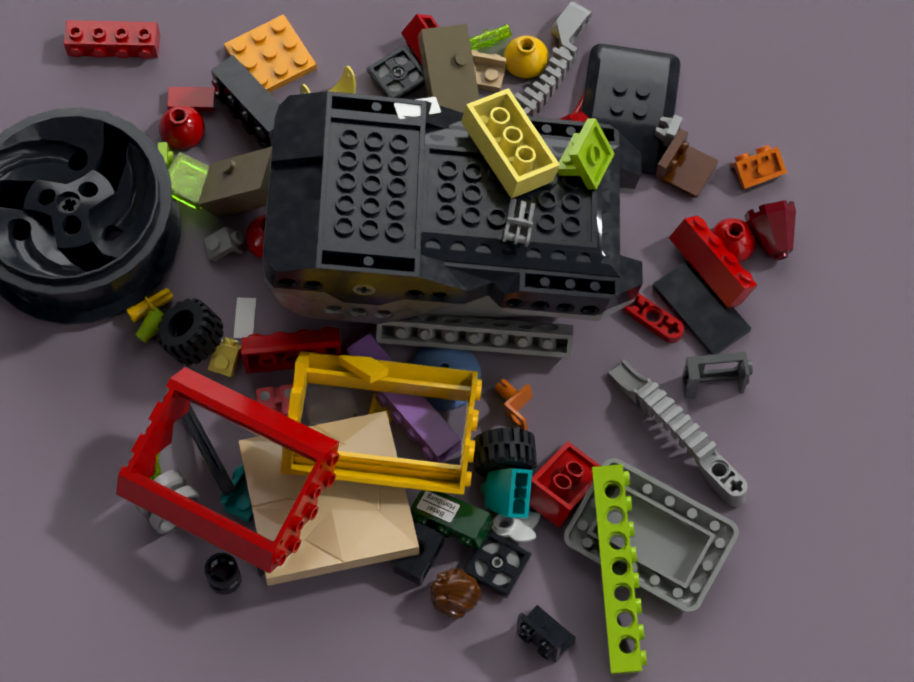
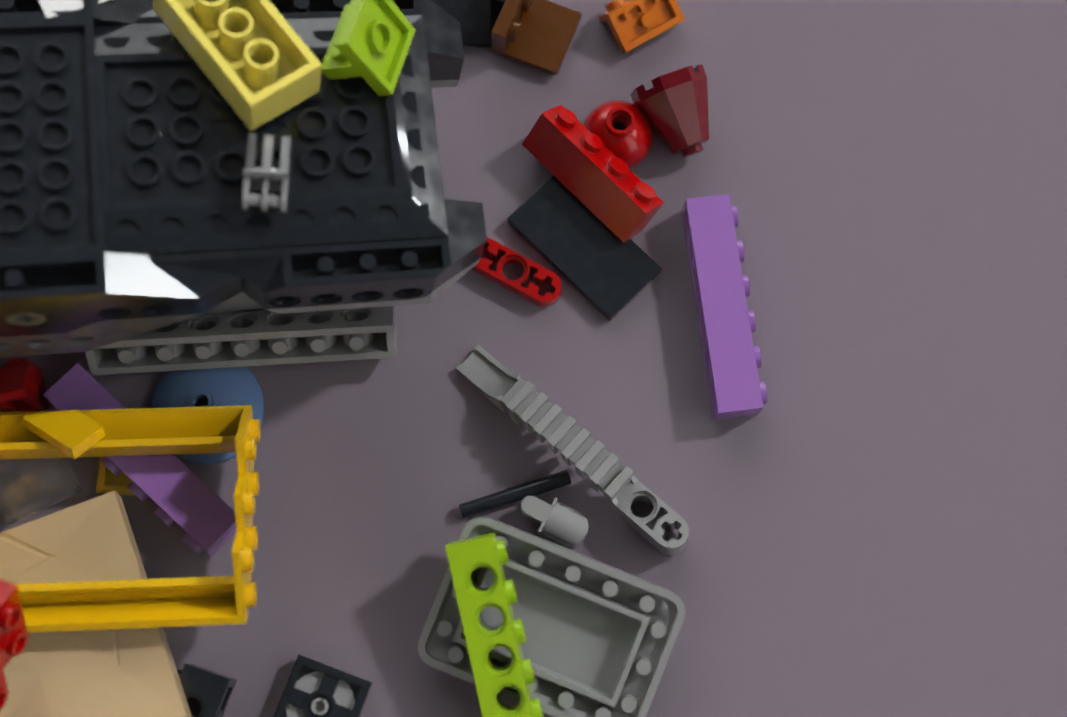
camera: 15 degrees left, 10 degrees up
(452, 517) = (243, 649): dark green brick -> none
(504, 450) = (308, 531): black tyre -> none
(508, 492) = (322, 597): teal torso -> none
(515, 401) = (319, 434): orange bracket -> none
(517, 528) = (348, 634): white plate -> none
(562, 484) = (405, 561): red slope -> none
(640, 454) = (514, 494): none -> black bar
(661, 470) = (556, 521): none -> light grey arm
(695, 373) = (616, 343): dark grey window -> none
(787, 357) = (722, 307): none -> medium lavender brick

